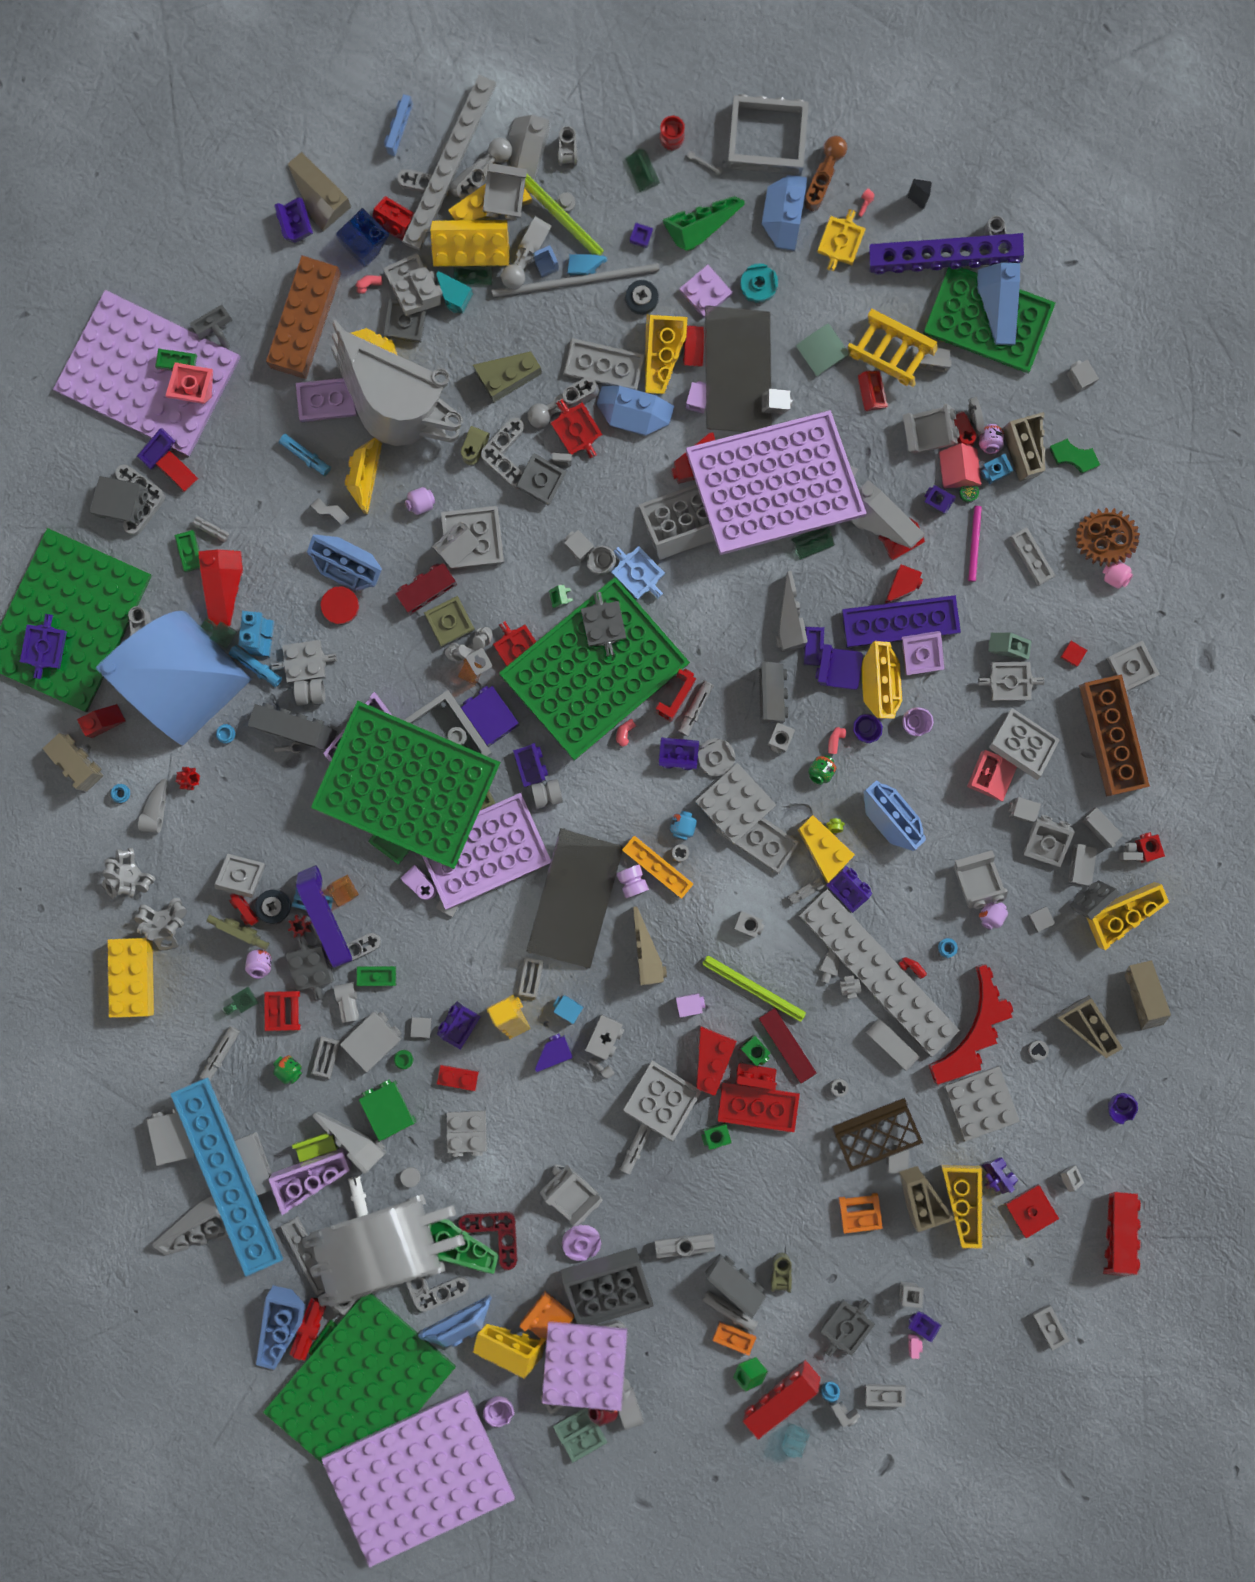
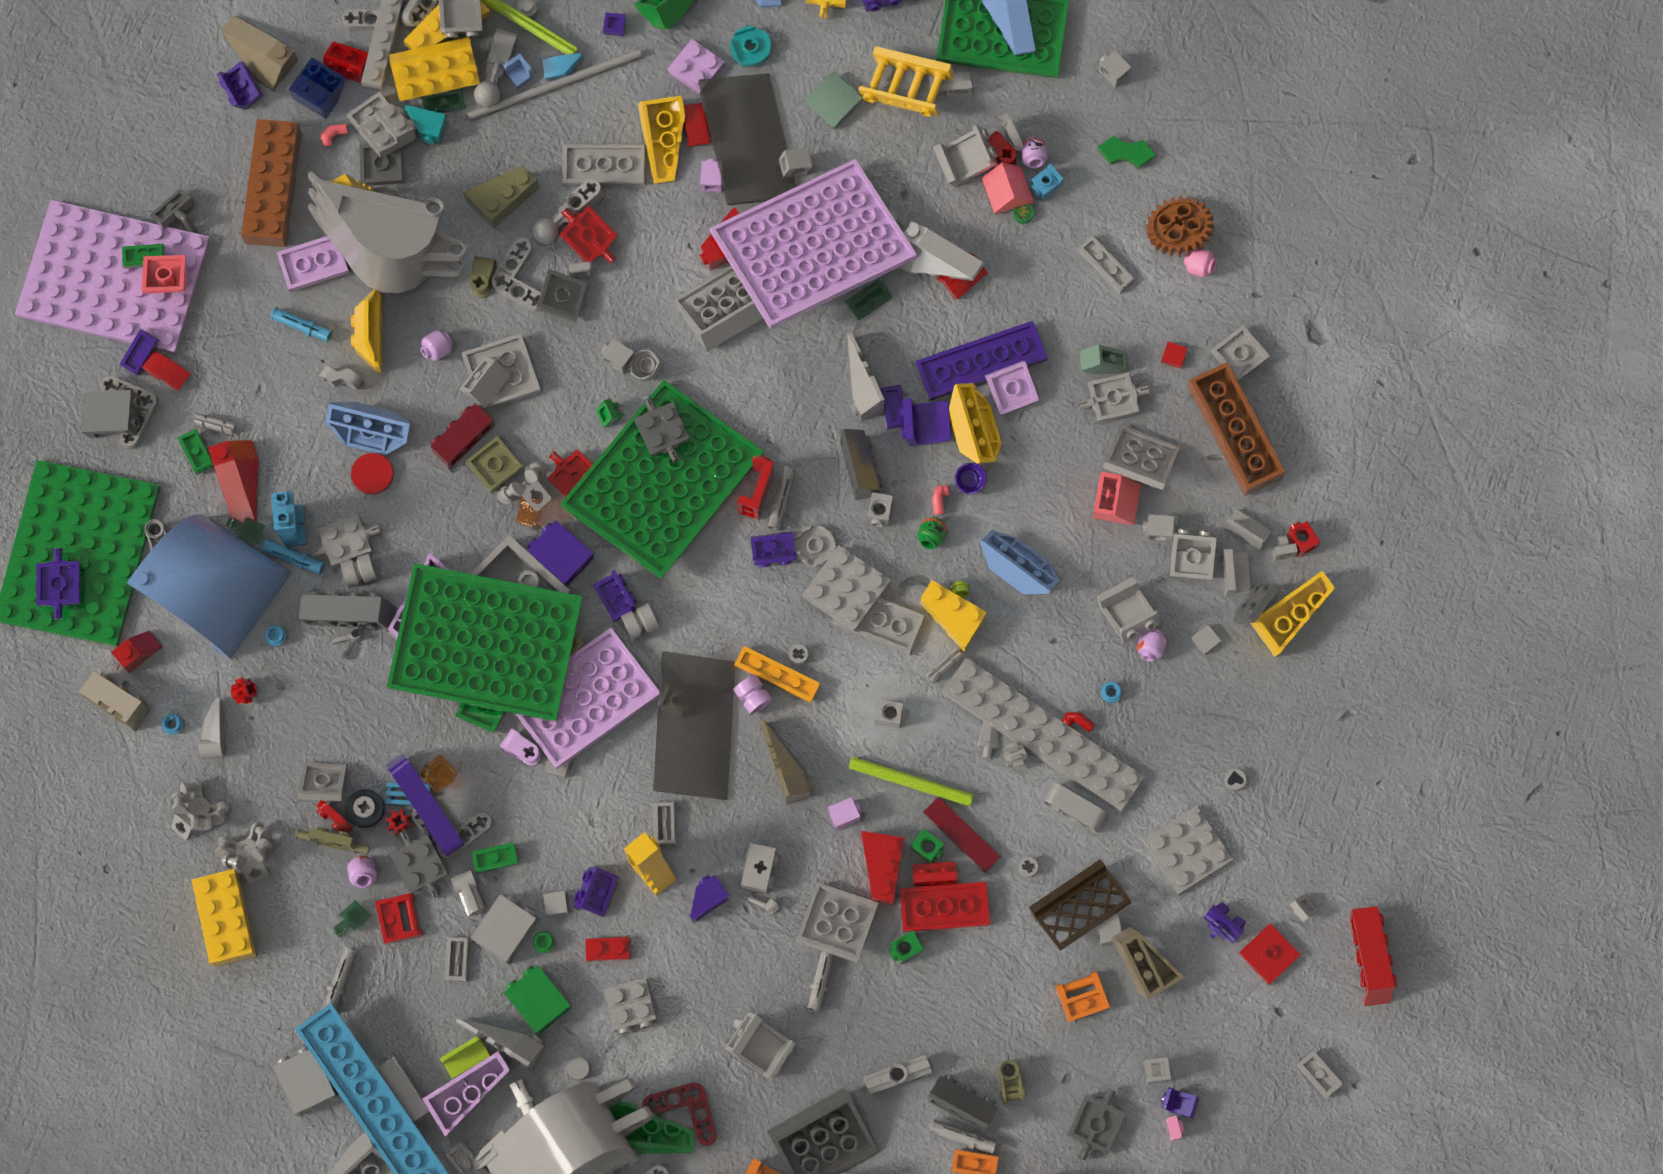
camera: 10 degrees left, 10 degrees down
(287, 1069) = (417, 980): green head -> none
(567, 1008) = (712, 846): dark azure brick -> none
(581, 1242) = (782, 1096): lavender tile -> none
(622, 732) = (707, 542): coral arm -> none
(634, 409) = (646, 203): medium blue wedge -> none
(638, 573) = (687, 370): light blue plate -> none
(641, 304) = (629, 94): black wheel -> none
(683, 825) = (795, 624): dark azure head -> none
(850, 888) = (990, 652): dark purple bracket -> none
(872, 390) = (896, 130): red slope -> none
(904, 583) = (975, 320): red slope -> none
(917, 721) = (1022, 460): lavender hair -> none
(945, 504) = (984, 221): dark purple brick -> none
(965, 1196) = (1191, 950): yellow wedge -> none
(974, 544) = (1041, 264): dark pink bar -> none
(990, 1011) = (1173, 748): red arch -> none
(1025, 445) = (1071, 150): dark tan wedge -> none
(1091, 1026) = (1284, 739): dark tan wedge -> none
(1122, 1108) = (1340, 819): dark purple hair -> none
(1147, 995) = (1338, 694): dark tan wedge -> none

